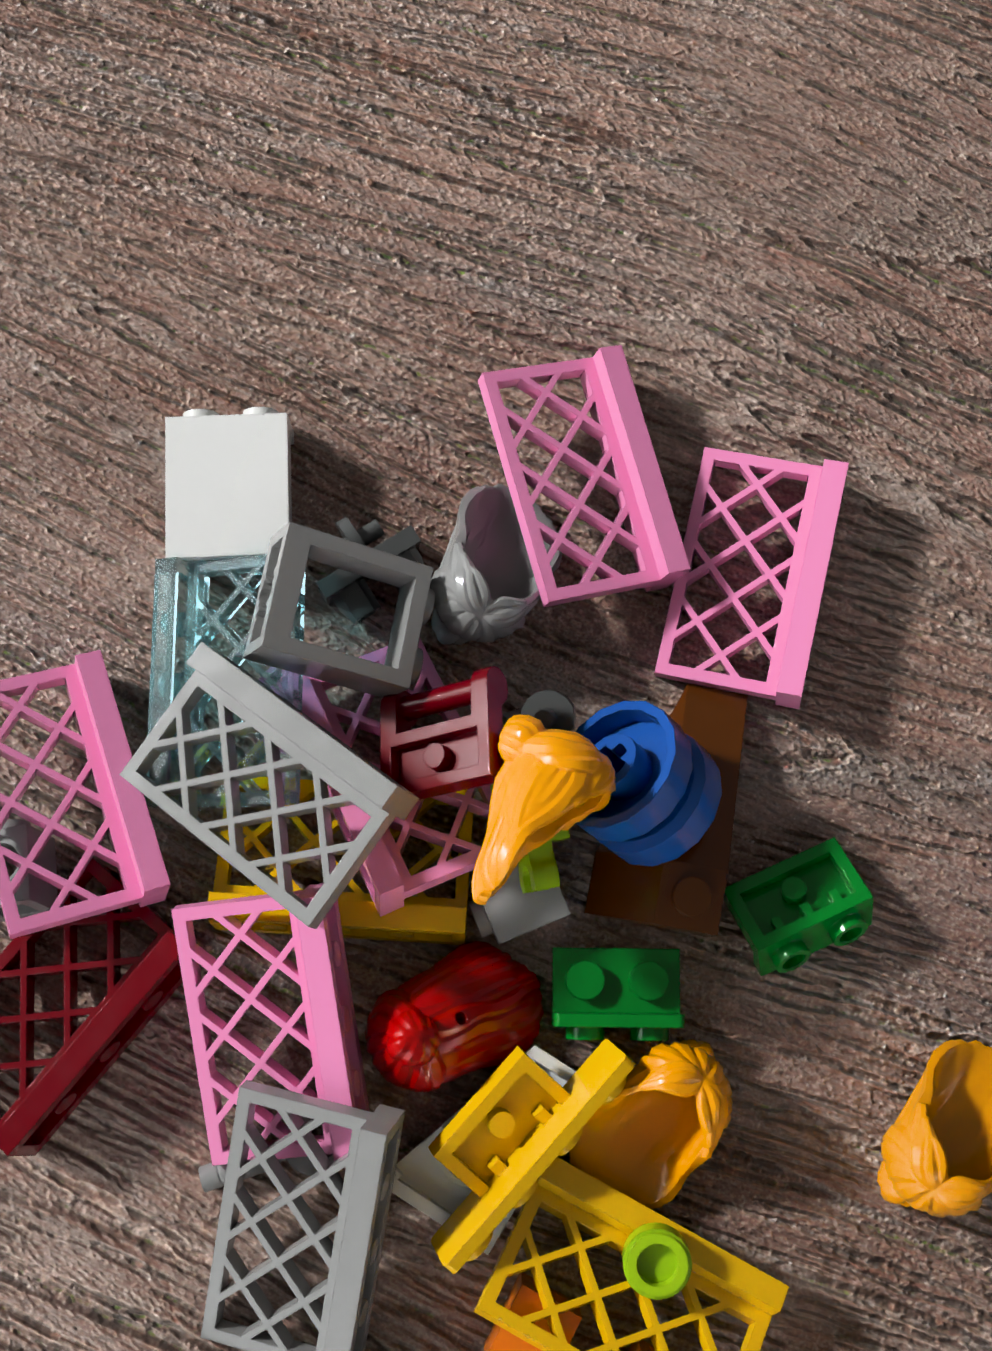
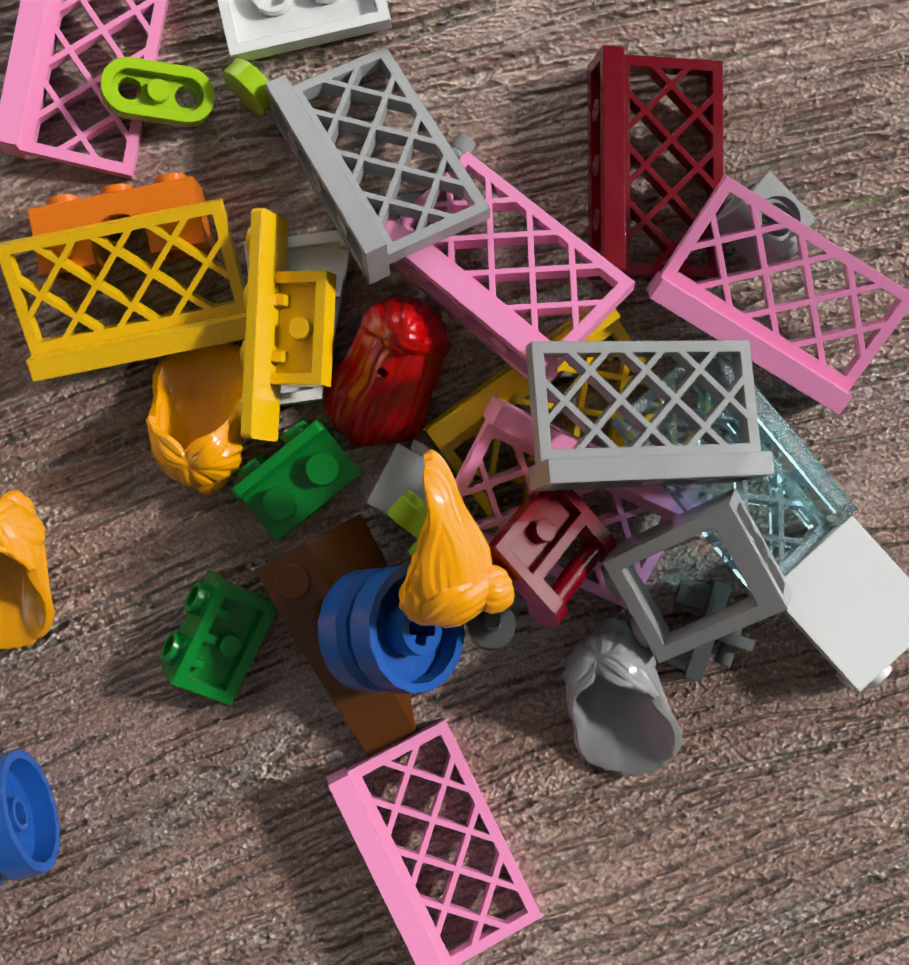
camera: 145 degrees right, 10 degrees up
(631, 467) = (591, 863): bright pink fence -> none
(656, 1261) = (129, 325): lime tile -> none

